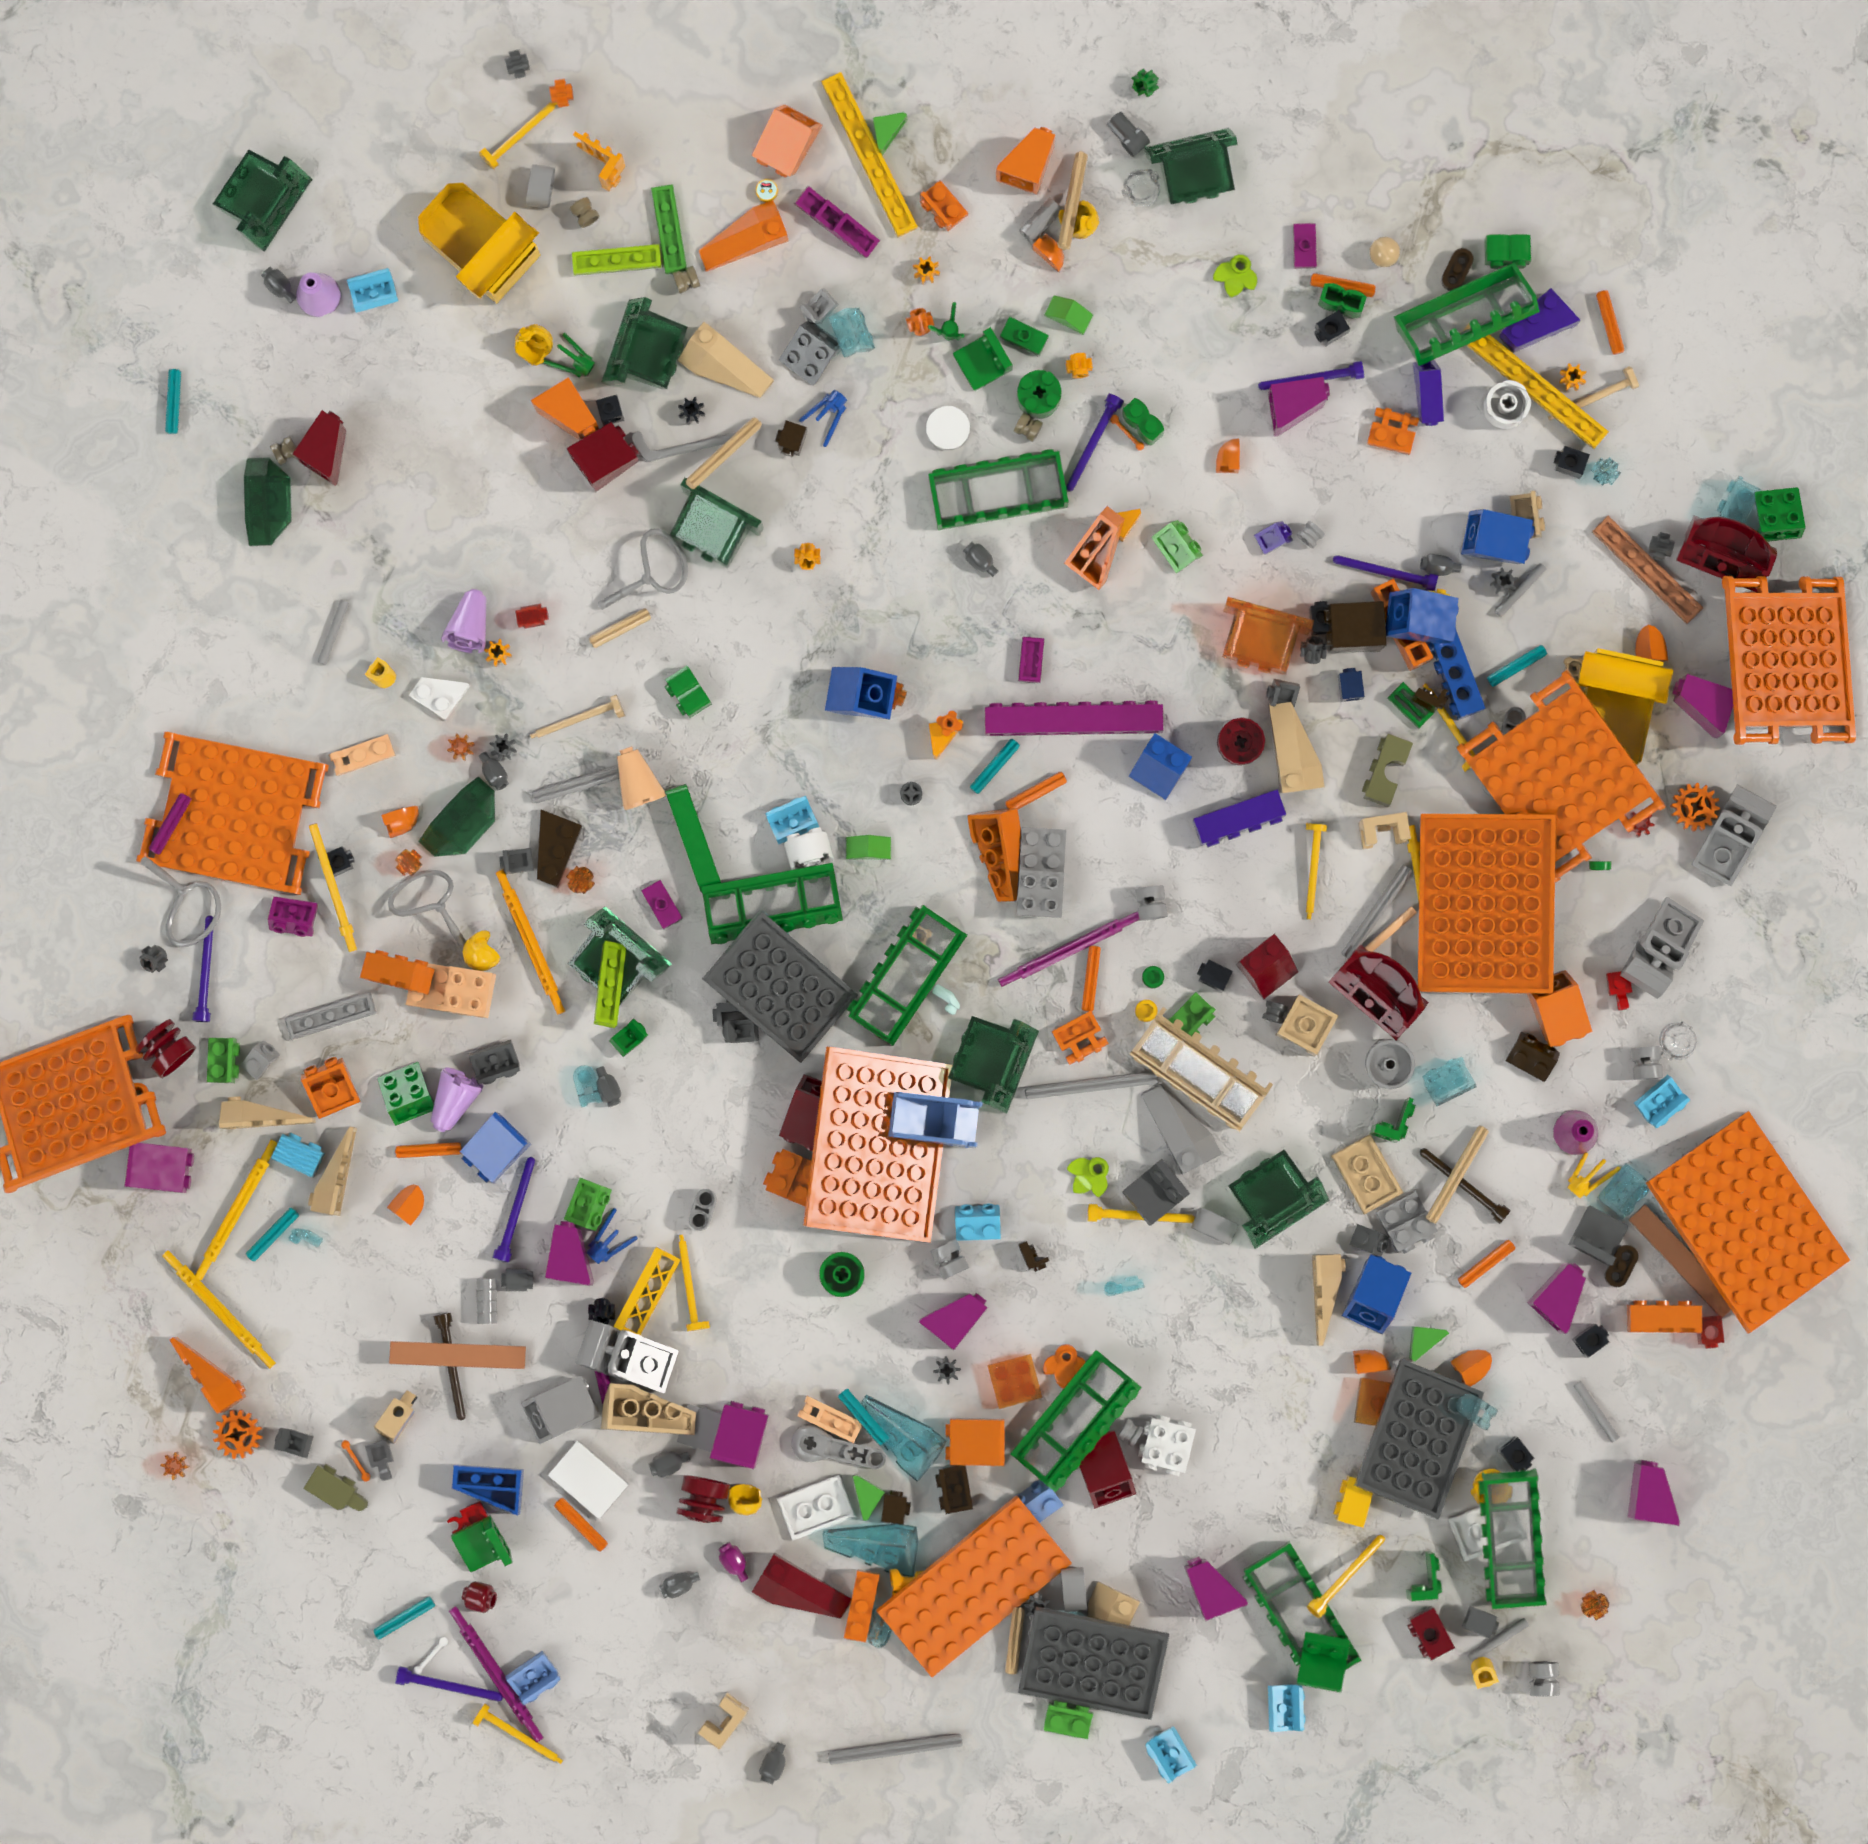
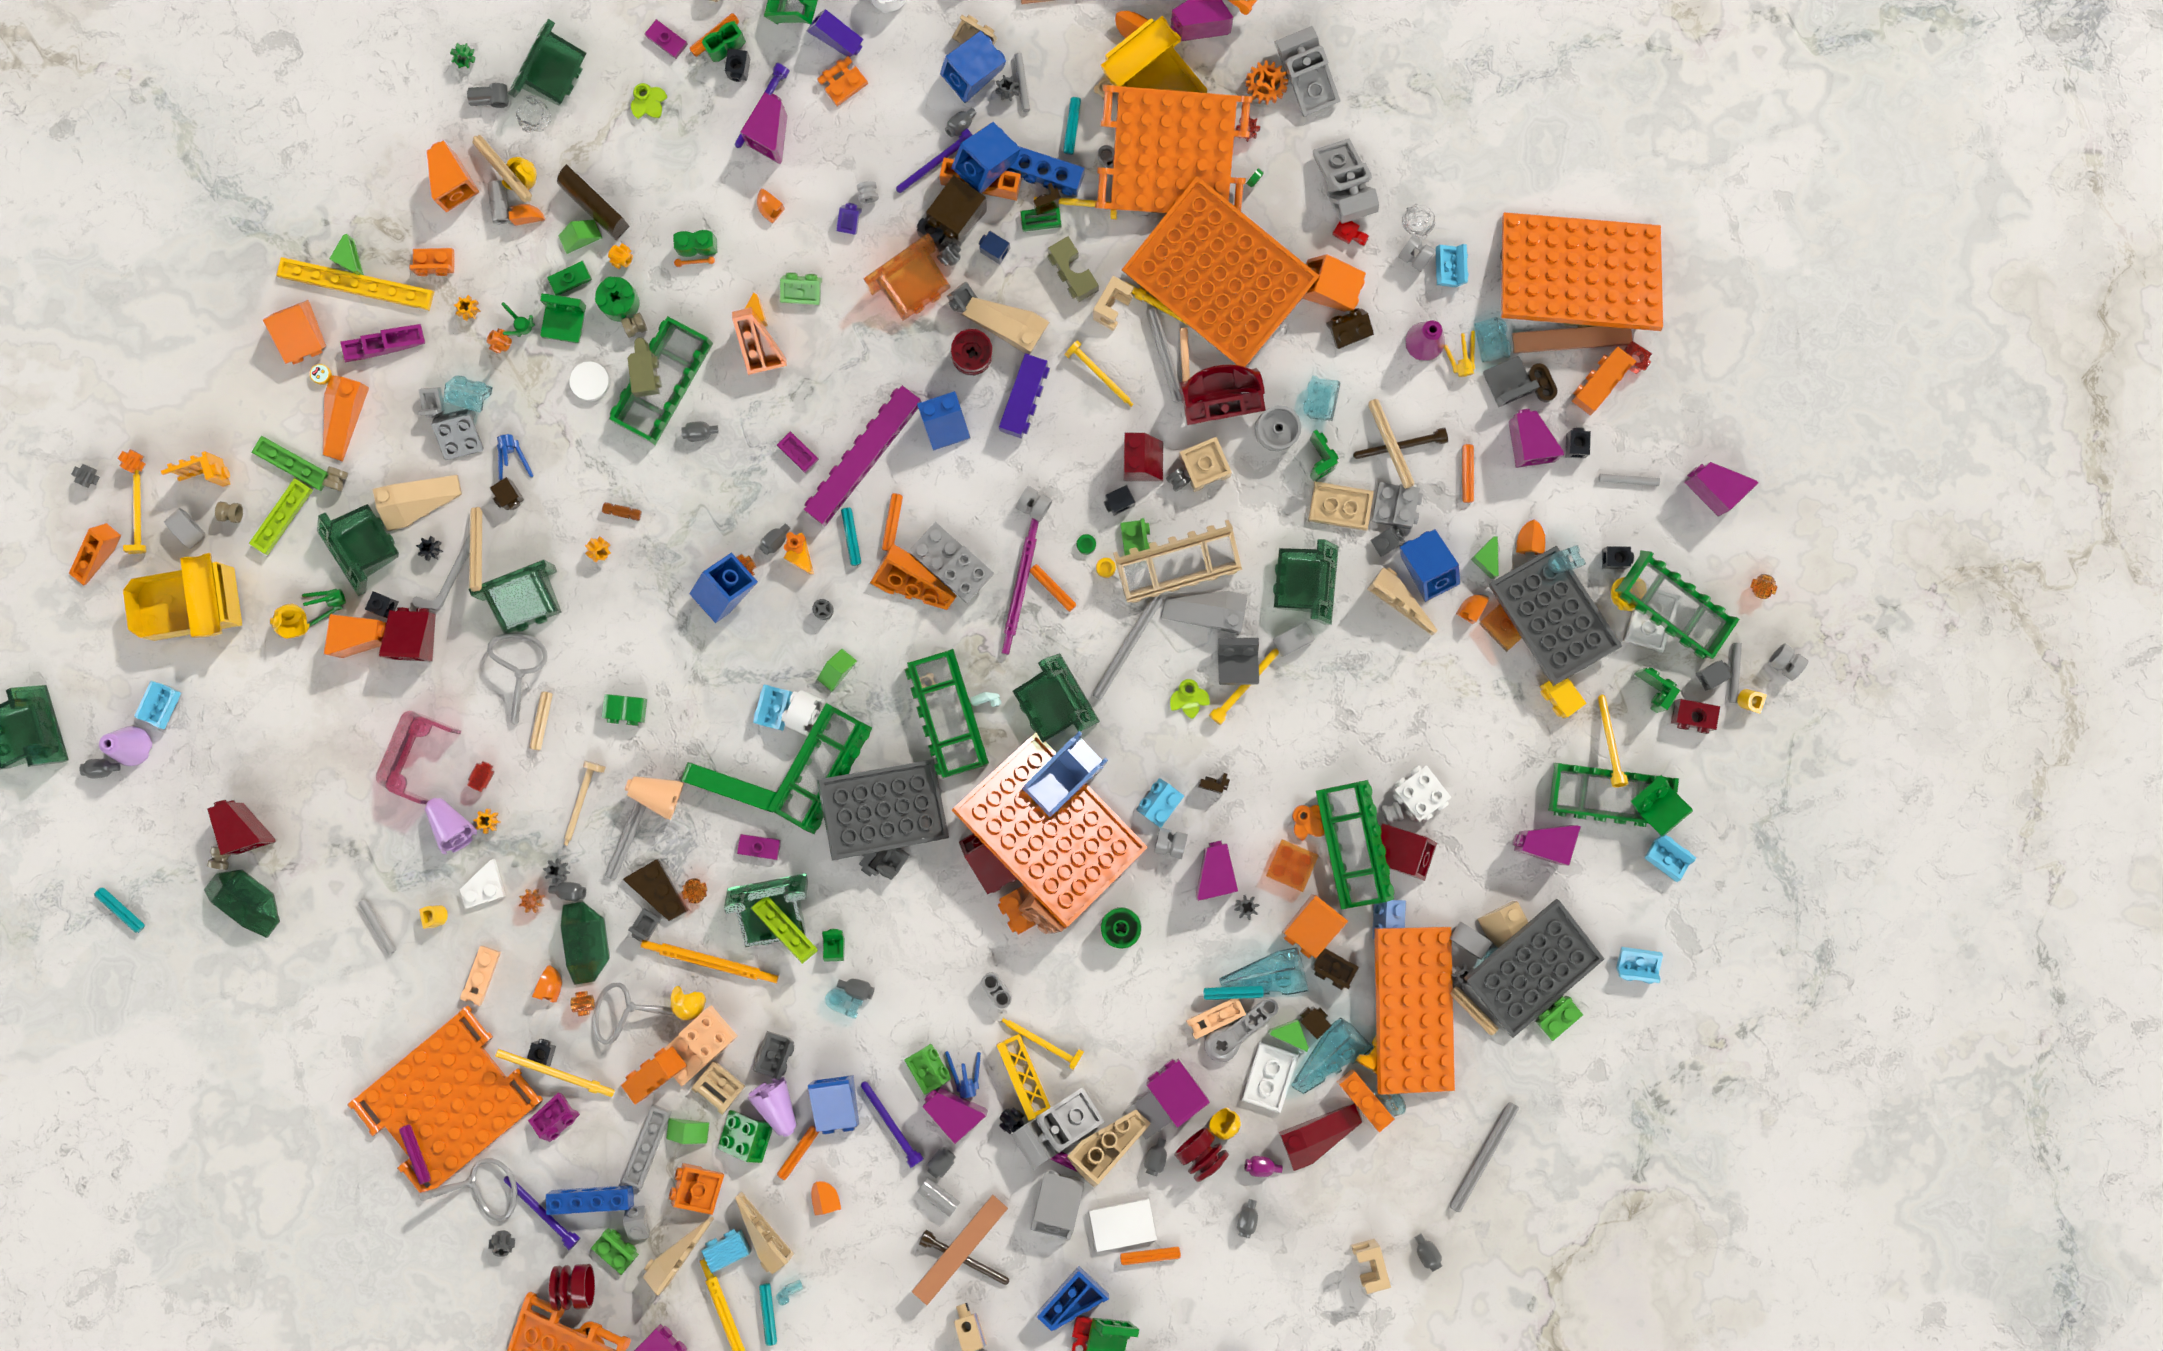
camera: 50 degrees left, 0 degrees up
(249, 1004) = (589, 1200): none -> blue brick
(371, 1040) = (687, 1131): none -> bright green slope
(436, 1036) = (722, 1082): none -> tan plate
(457, 126) = (94, 551): none -> orange slope
(524, 519) = (389, 772): none -> clear pink windscreen
(797, 1188) = (1035, 911): none -> nougat slope
(856, 549) = (621, 511): none -> dark orange axle
(938, 701) = (774, 539): none -> dark grey plant
(994, 470) = (643, 370): none -> olive hinge
(1075, 1032) = (1081, 628): orange plate -> none
(1106, 302) = (591, 202): none -> dark brown brick
(1112, 404) = (666, 255): dark purple piece -> none
(1131, 1284) = (1288, 730): clear light blue plate -> none

